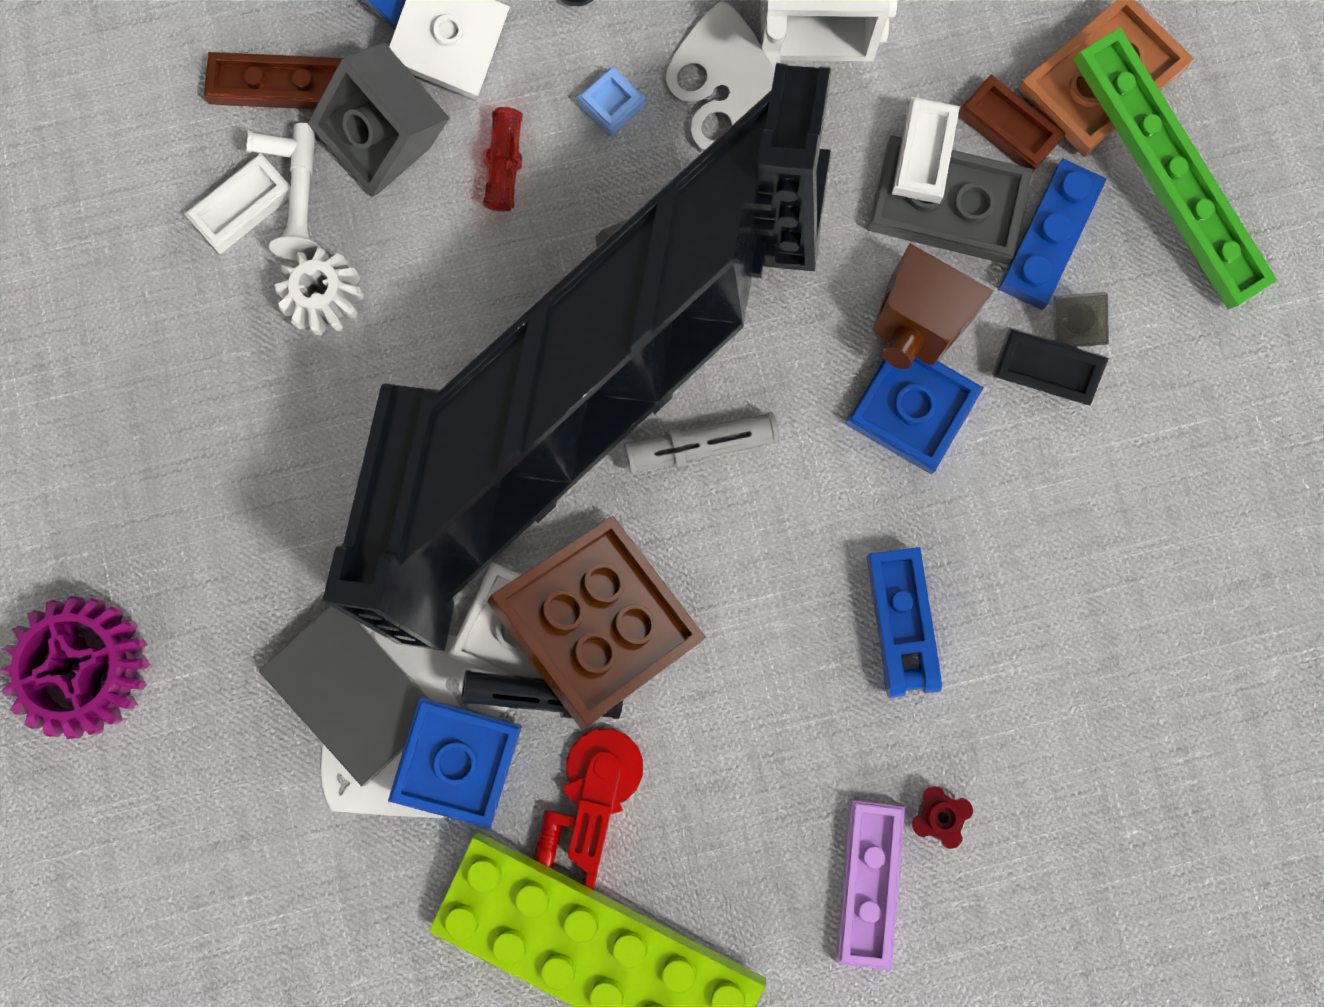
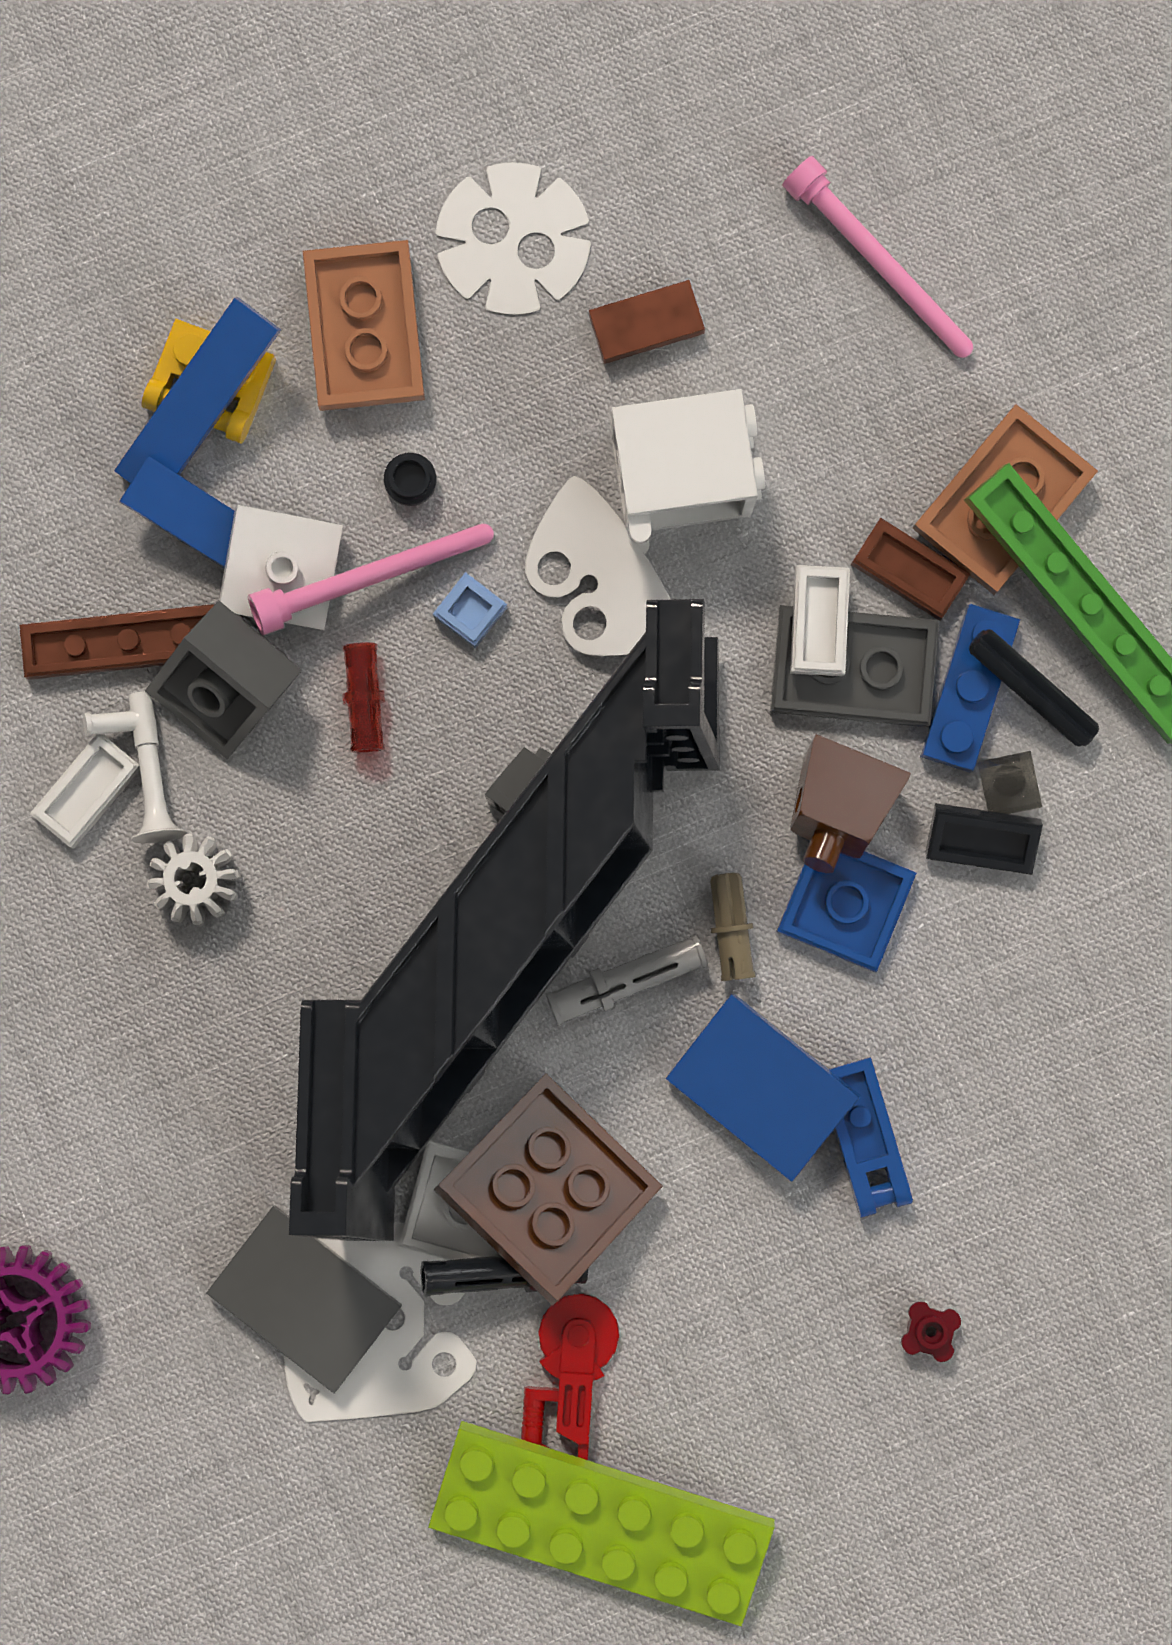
camera: 10 degrees left, 5 degrees up
(436, 61) = (275, 608): none -> bright pink piece
(455, 762) = (425, 1354): blue tile -> none
(805, 410) = (731, 927): none -> dark tan axle
(815, 559) = (763, 1087): none -> blue tile
(870, 885) = (867, 1409): lavender tile -> none
(1114, 236) = (1033, 688): none -> black axle

